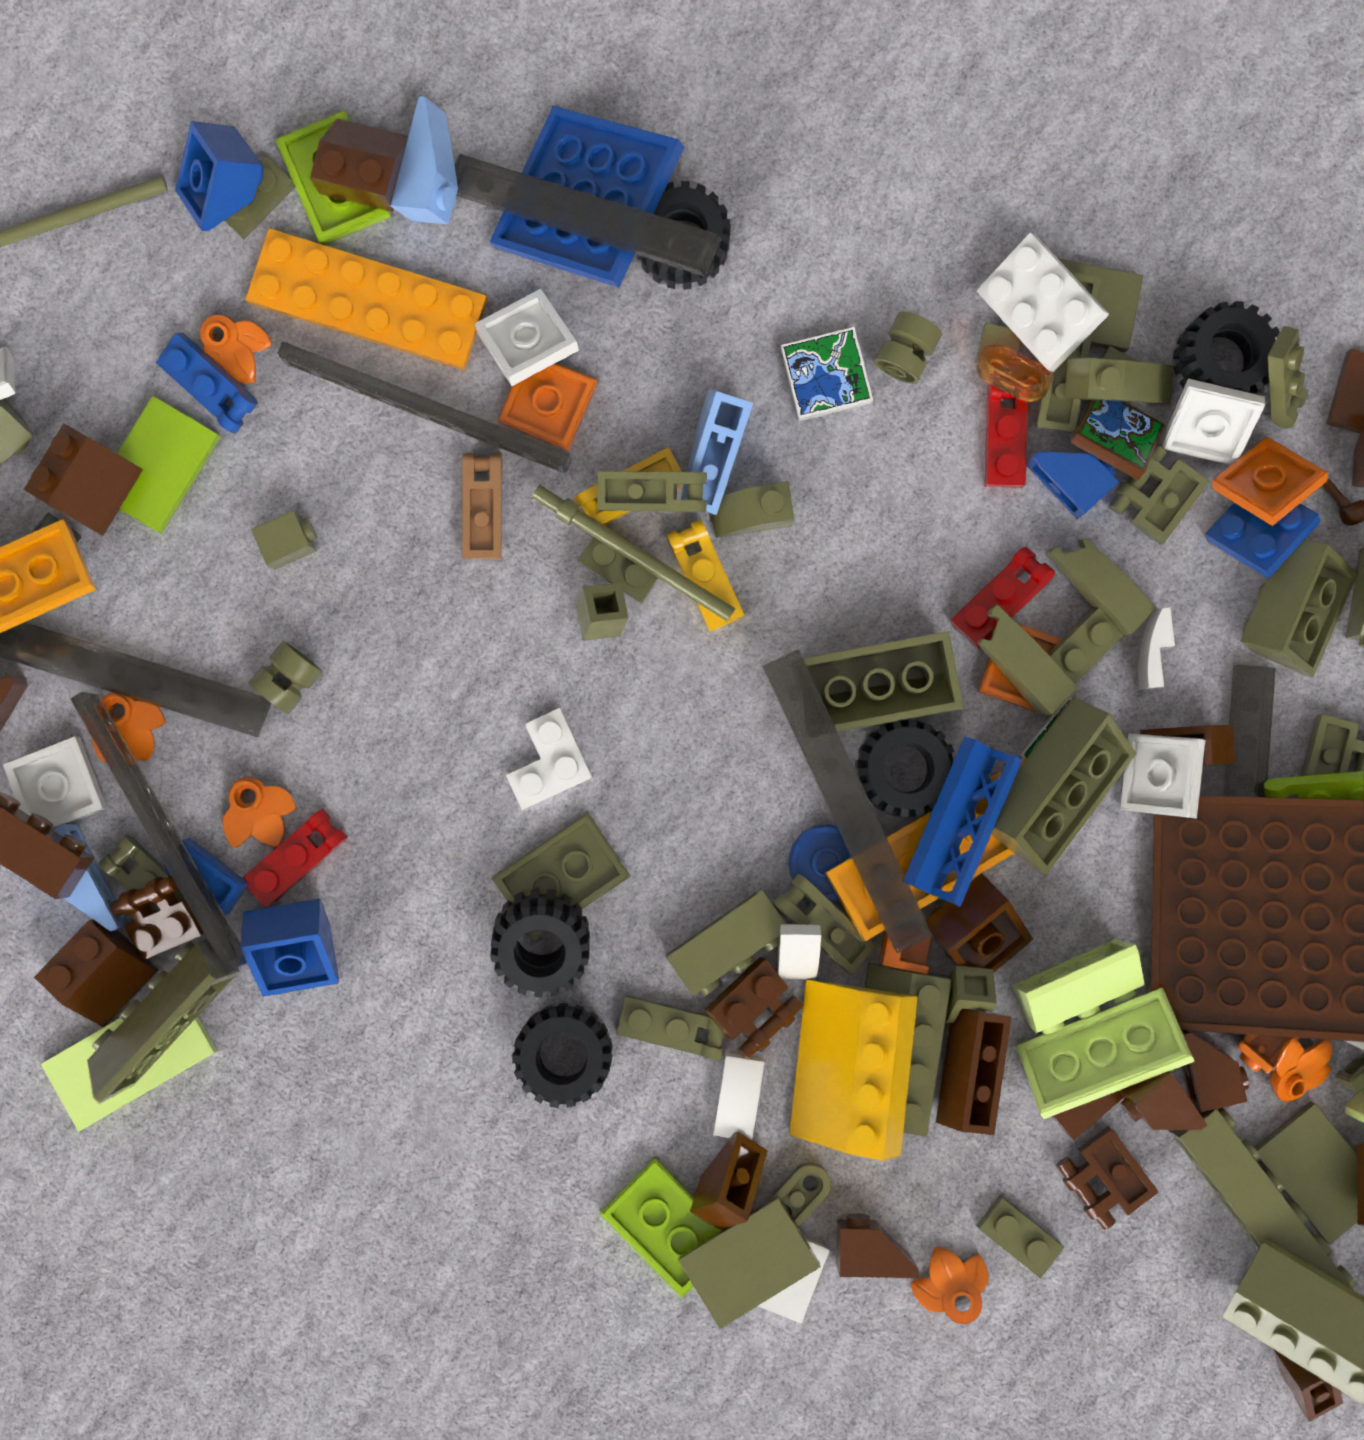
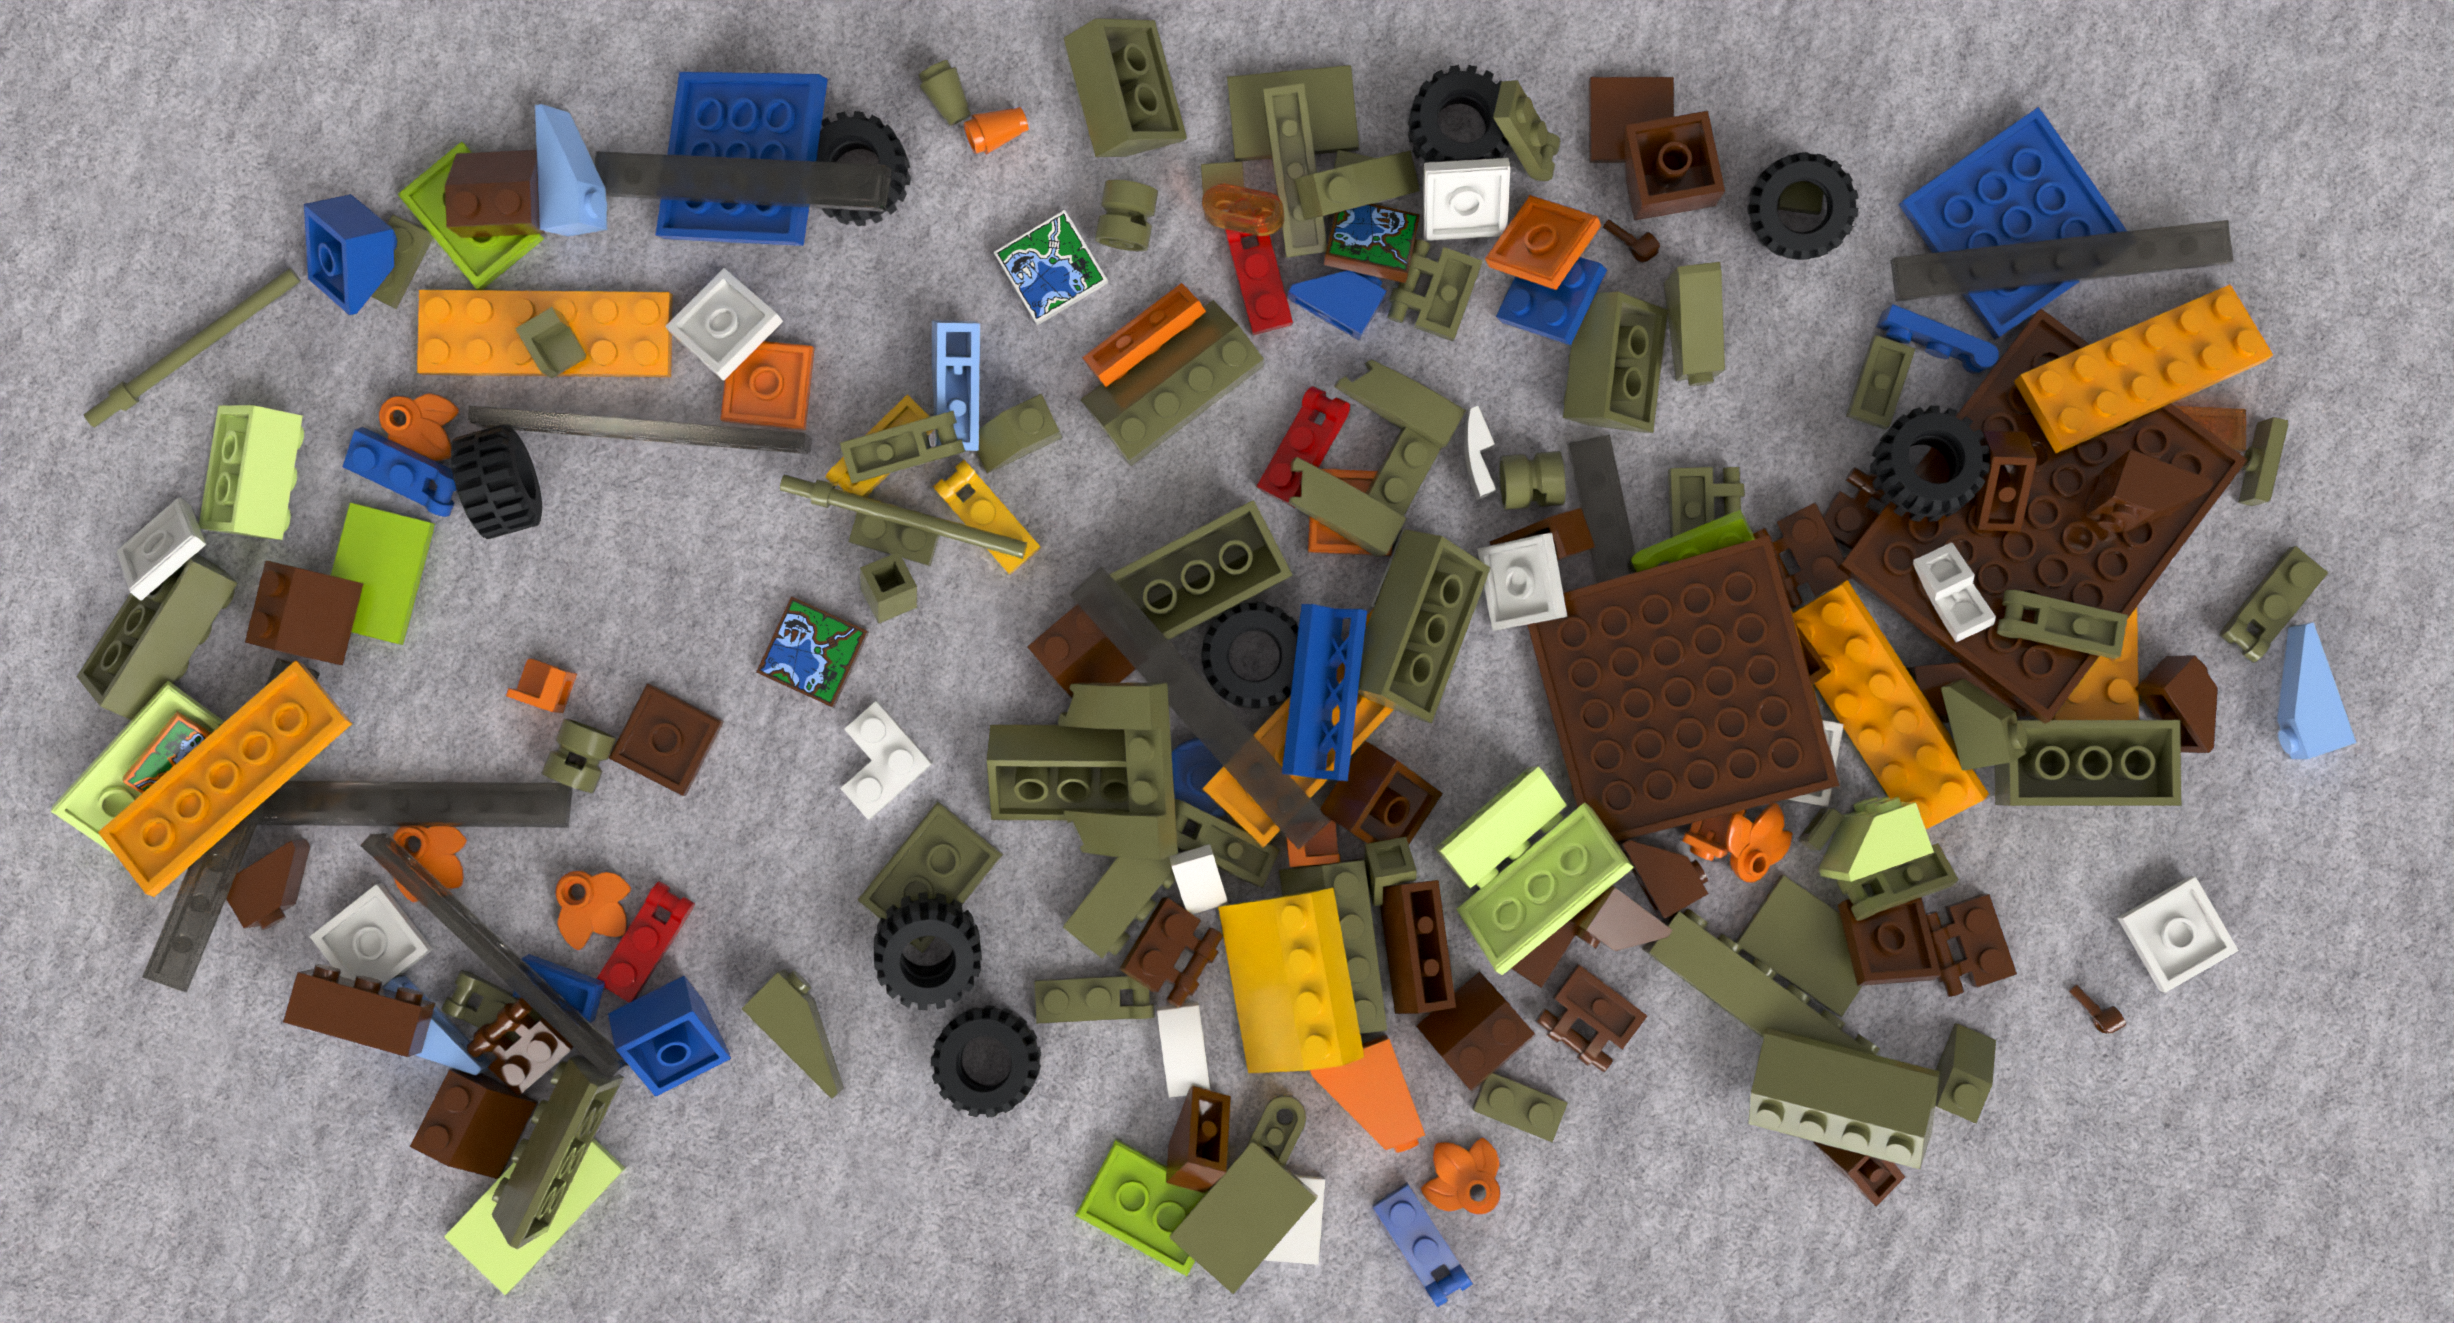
camera: 15 degrees left, 0 degrees up
(75, 342) = (251, 471): none -> yellowish green slope
(273, 607) = (544, 686): none -> orange panel
(285, 539) = (535, 611): olive brick -> none
(286, 414) = (496, 481): none -> black tyre
(365, 686) = (666, 739): none -> reddish brown tile
(371, 307) = (551, 342): none -> olive panel
(403, 969) = (794, 1023): none -> olive slope
(482, 507) = (731, 516): medium nougat plate -> none
(517, 648) = (812, 652): none -> tile
(716, 823) = (1053, 768): none -> olive slope
(753, 724) = (1079, 652): none -> reddish brown slope
(779, 190) = (945, 91): none -> olive cone
(798, 793) = (1150, 823): none -> olive wedge
(813, 237) = (994, 129): none -> orange cone
(869, 1251) = (1365, 1167): reddish brown slope -> none
(891, 457) = (1144, 334): none -> orange plate
(897, 1332) = (1421, 1243): none -> plate
(900, 1192) = (1376, 1095): none -> orange slope
(905, 506) = (1174, 384): none -> olive slope
(938, 234) = (1124, 86): none -> olive slope
(1004, 1164) = (1477, 1033): none -> reddish brown slope
(1042, 302) = (1250, 127): white plate -> none
(1202, 689) = (1532, 480): none -> olive wheel

